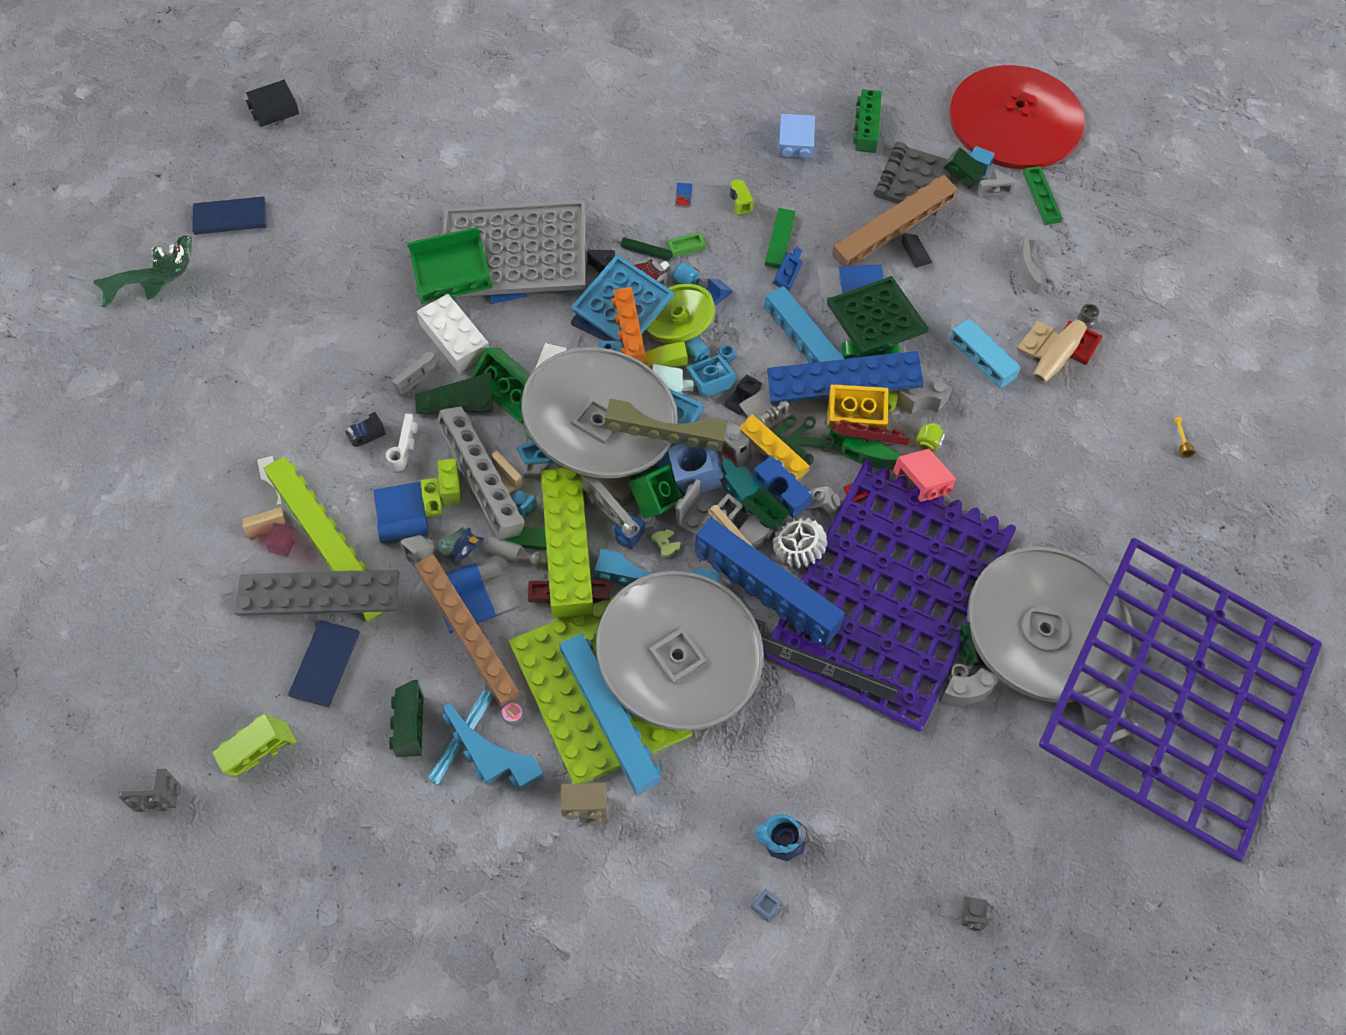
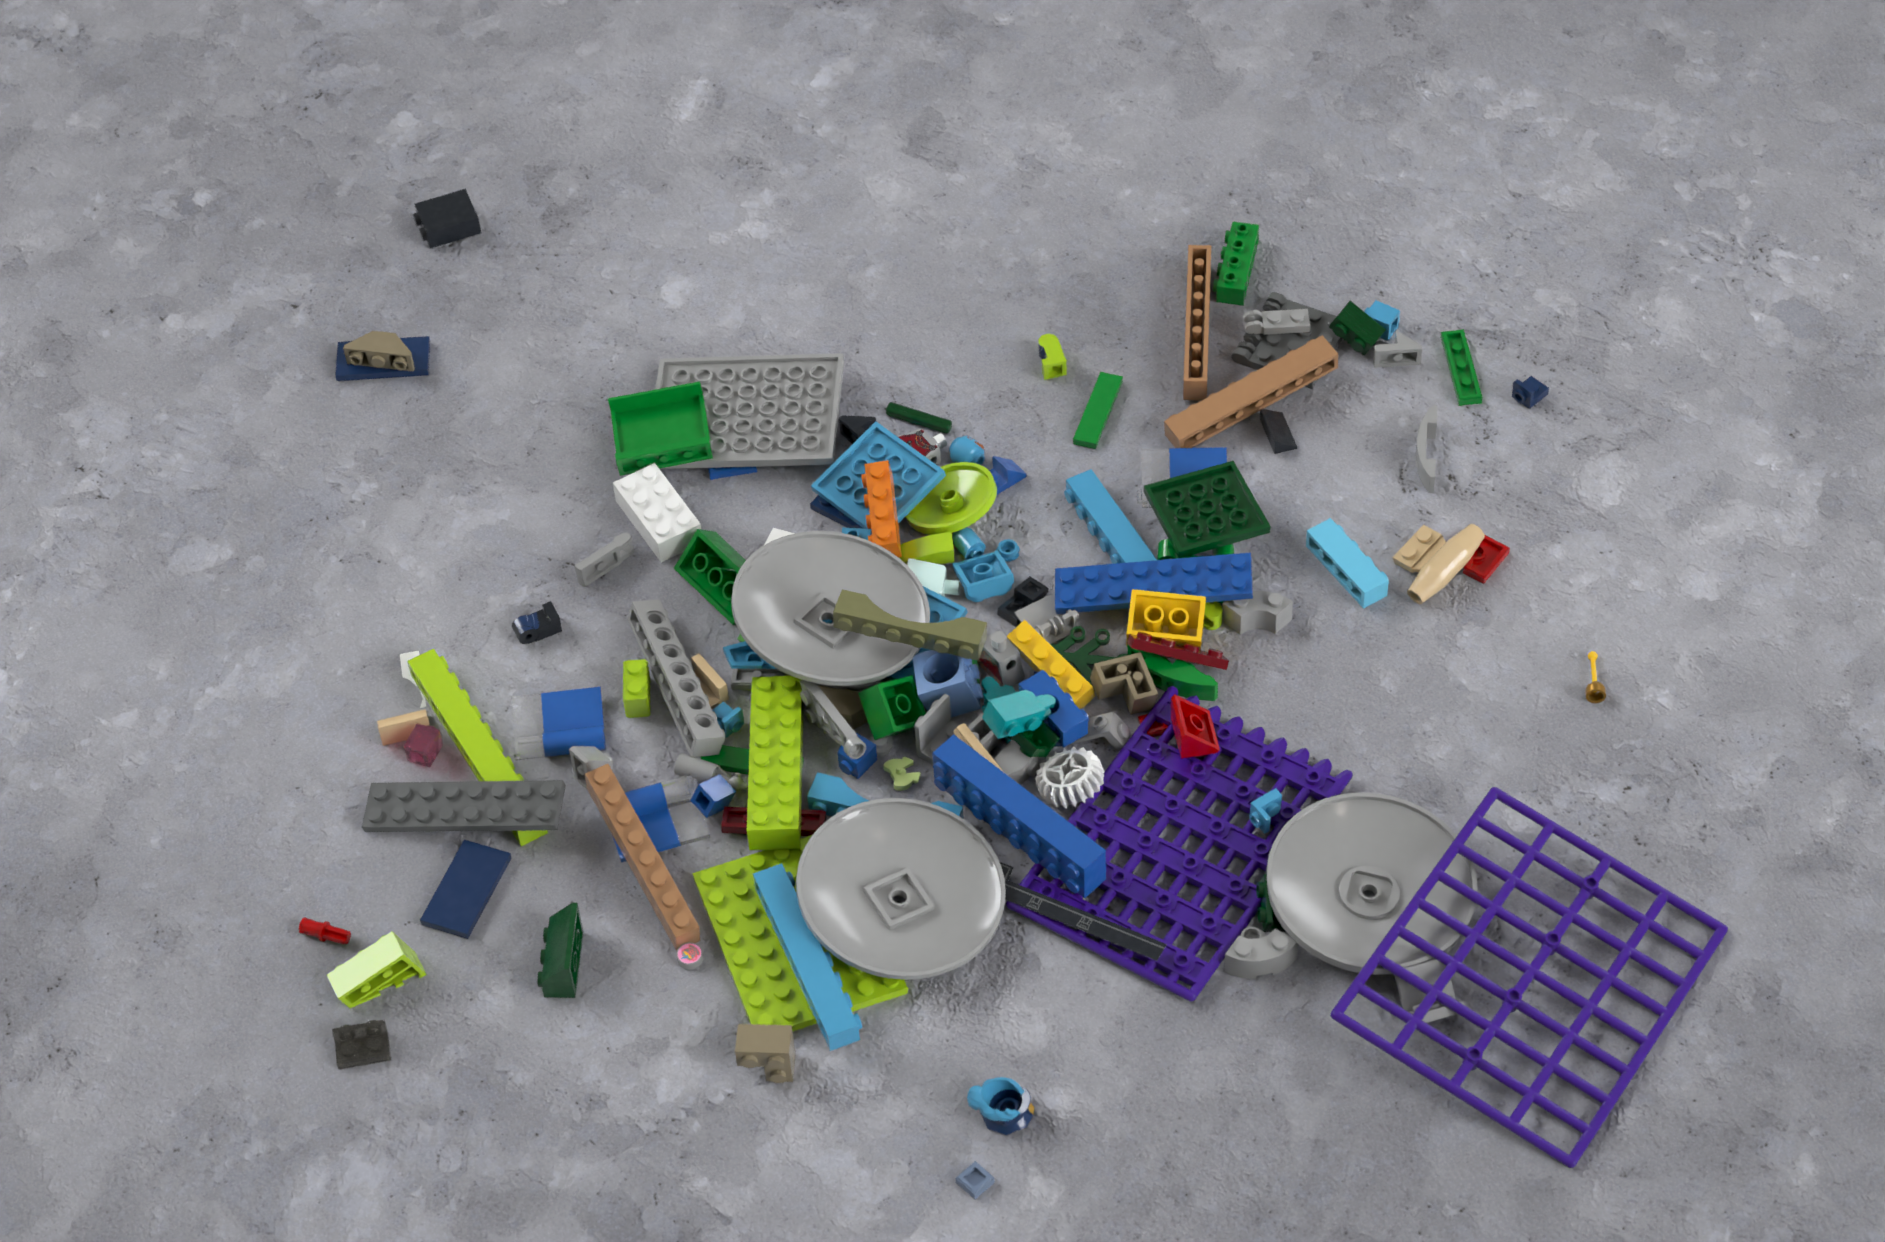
camera: 10 degrees right, 10 degrees down
(160, 799) = (254, 1021): dark grey bracket -> none
(164, 270) = (281, 432): clear green piece -> none
(209, 708) = (324, 931): none -> red axle
(226, 210) = (379, 351): none -> dark tan slope
(246, 812) = (362, 1044): none -> clear smoke bracket
(405, 445) = (575, 655): white plate -> none
(431, 497) = (613, 705): lime leg -> none
(453, 748) = (624, 978): medium azure axle -> none
(459, 544) = (642, 761): piece -> none
(471, 394) = (675, 587): dark green wing -> none
(490, 759) = (657, 1001): dark azure arch -> none
(519, 572) = (713, 796): none -> blue brick
(683, 194) = (977, 351): sticker -> none
(686, 244) = (972, 414): bright green tile -> none
(757, 495) = (1017, 712): none -> teal hinge
(788, 269) = (1102, 450): blue hinge -> none
(796, 136) = (1137, 280): light blue brick -> none
(834, 456) = (1127, 677): none -> dark tan brick
(846, 168) = (1197, 322): none -> medium nougat brick
(891, 498) = (1192, 728): none -> red slope
(905, 164) = (1277, 321): none -> light grey hinge
(926, 473) = (1243, 704): coral panel -> none
(930, 437) = (1257, 661): lime head -> none
(956, 563) = (1265, 808): none -> dark azure bracket
(974, 913) = (1227, 1203): dark grey bracket -> none
(1026, 137) = (1437, 291): red dish -> none
(1088, 314) = (1493, 521): dark grey wheel -> none
(1095, 212) = (1529, 391): none -> dark blue bracket

